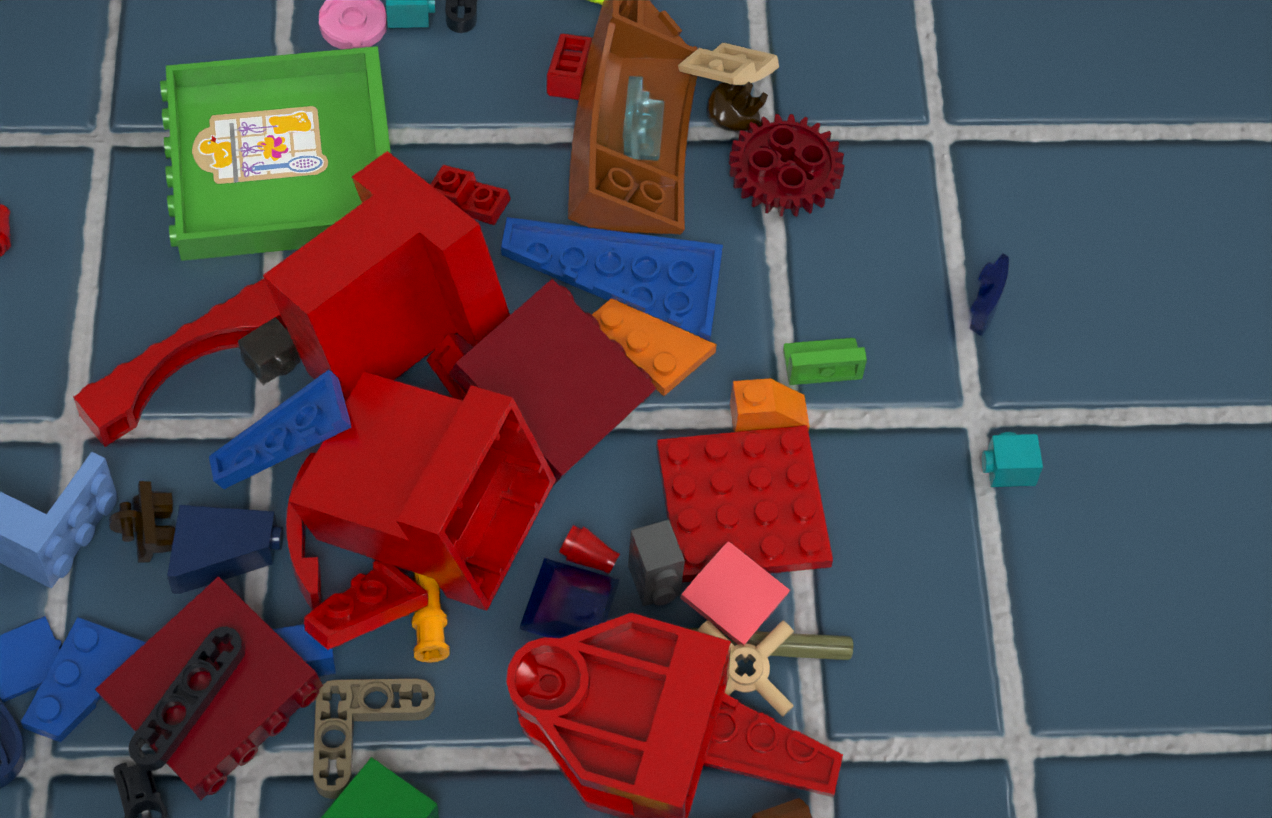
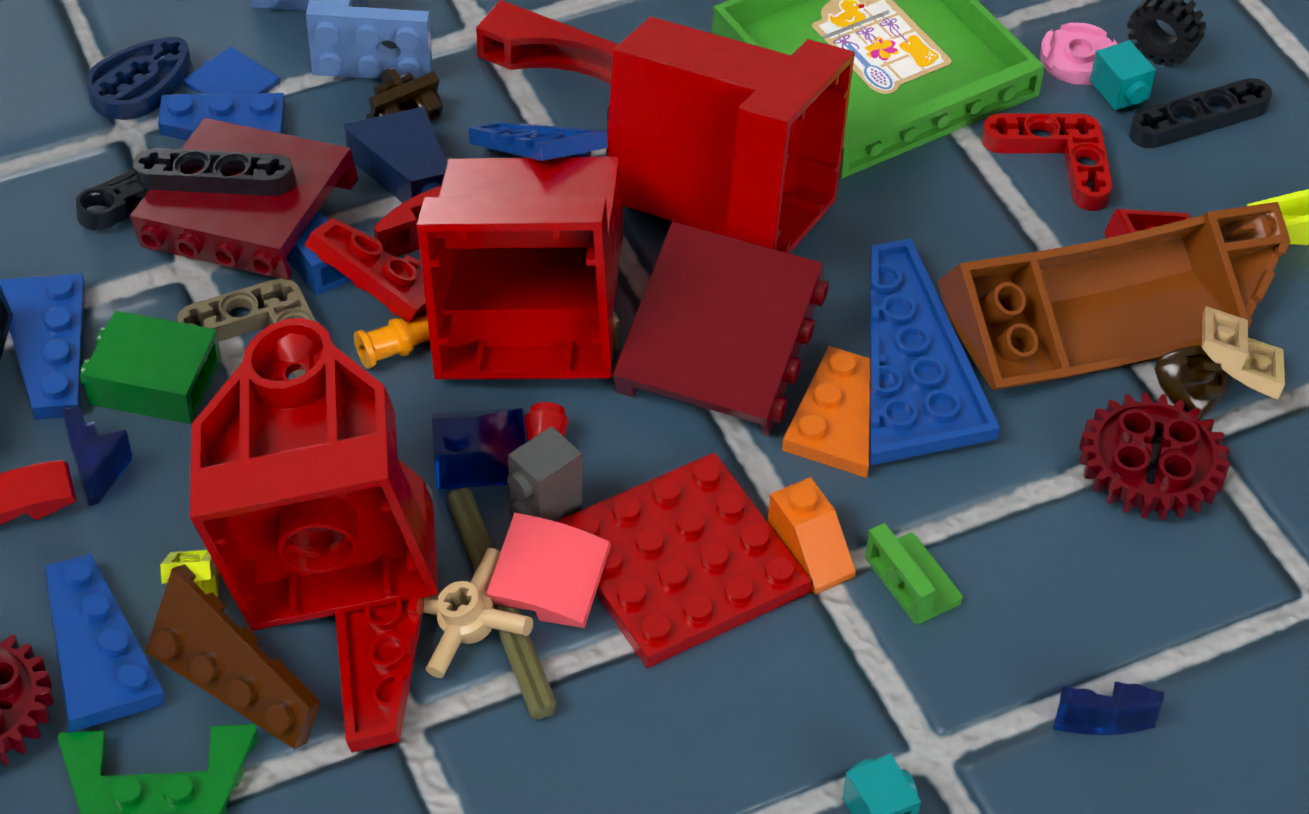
camera: 70 degrees right, 10 degrees down
(455, 71) = (1071, 143): none -> red beam
(474, 198) = (926, 206): red slope -> none
(642, 123) = (1107, 299): clear light blue bracket -> none

